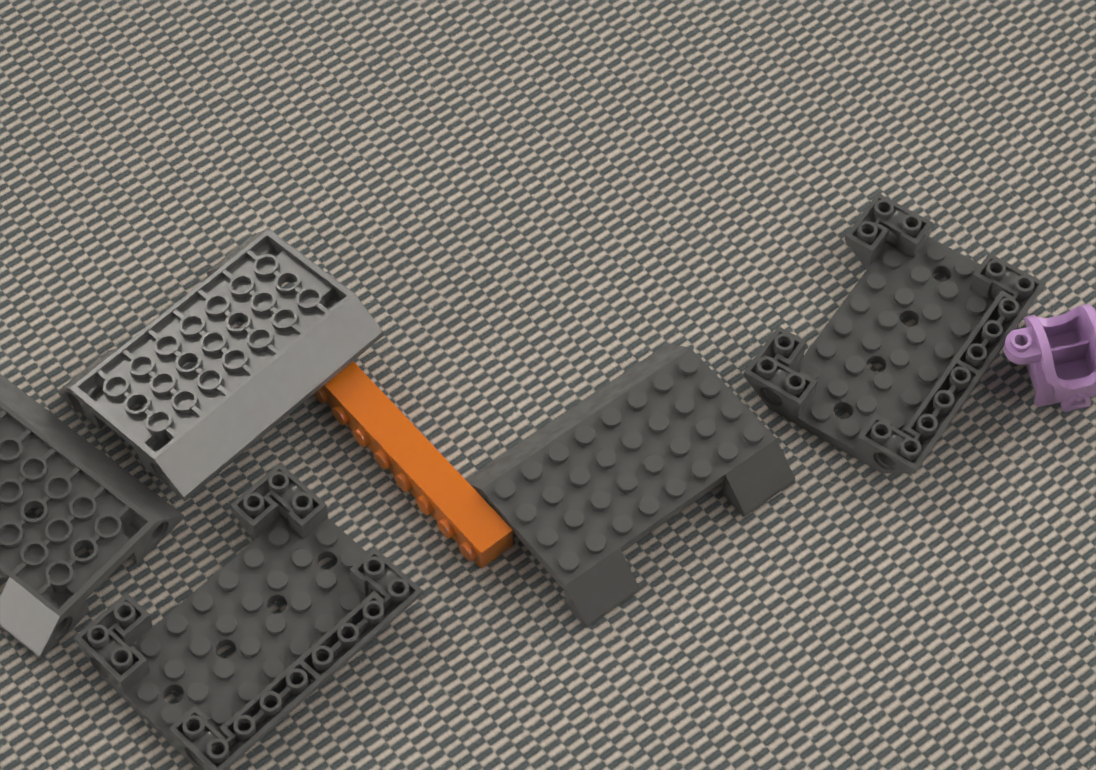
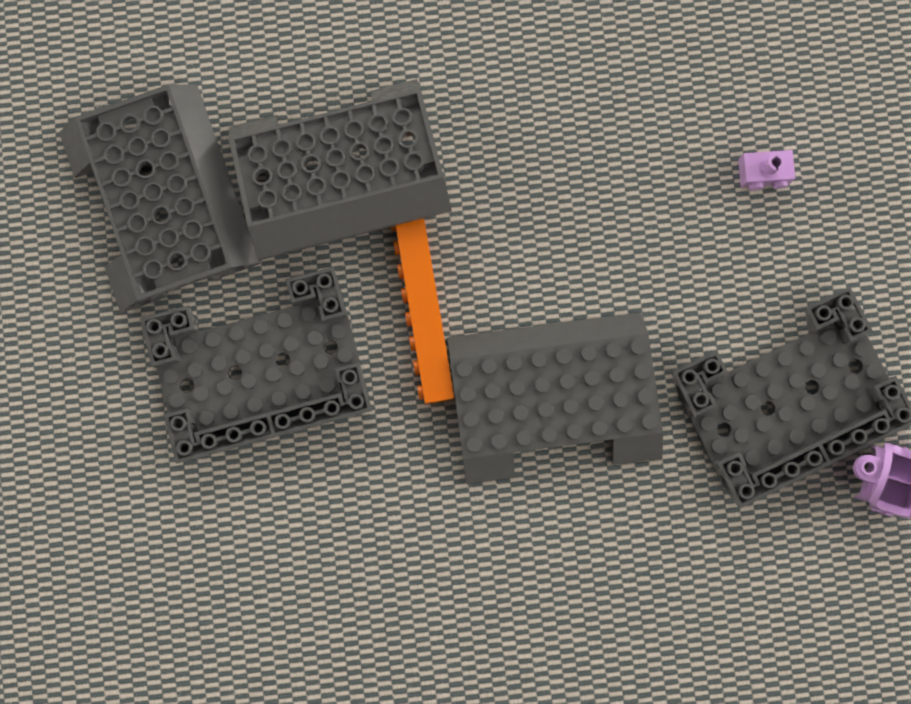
camera: 30 degrees right, 25 degrees up
(709, 132) = (766, 169): none -> lavender brick

